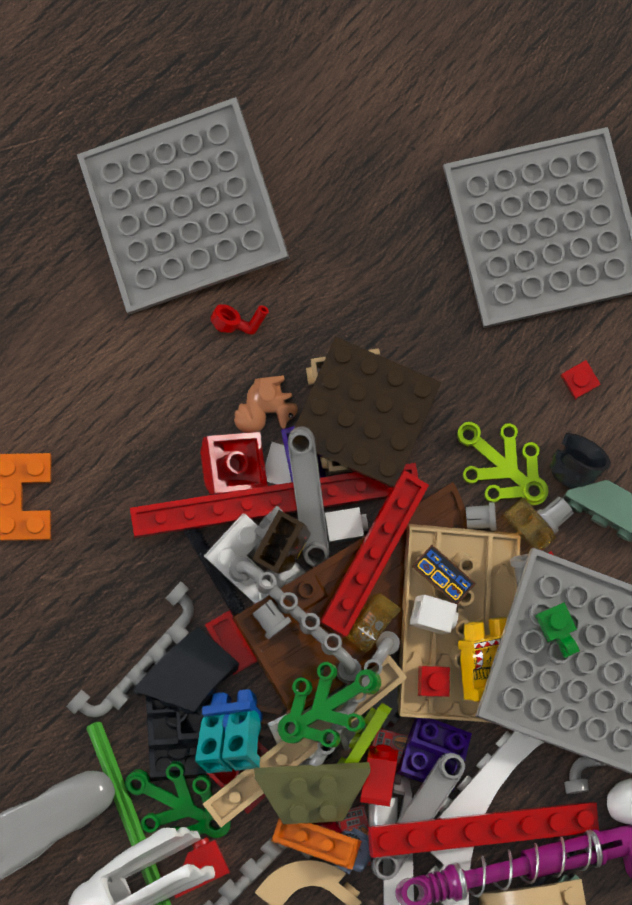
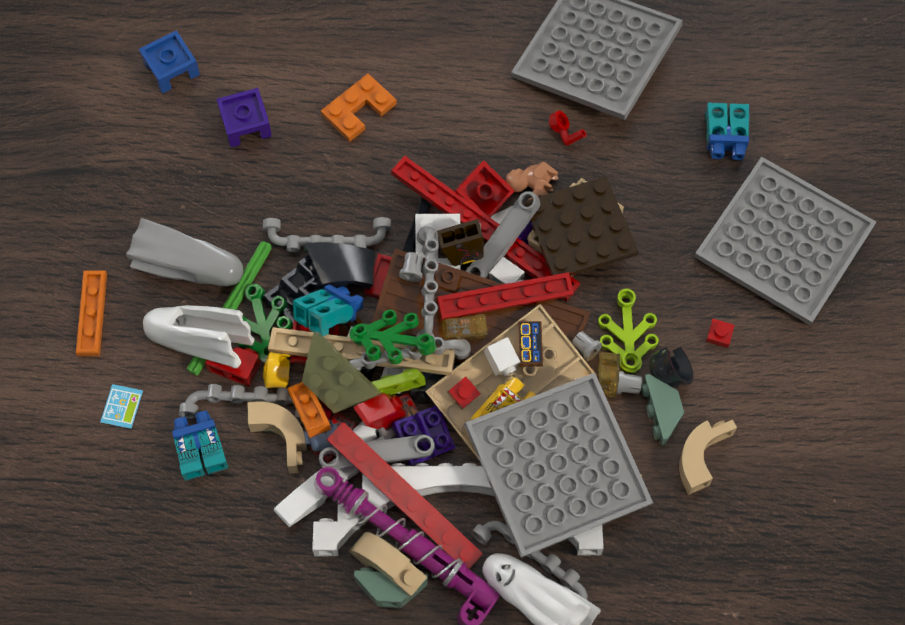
camera: 50 degrees right, 15 degrees down
(246, 836) = (276, 370): none -> yellow hair
(385, 167) = (727, 129): none -> hips
(557, 625) = (563, 424): green plate -> none

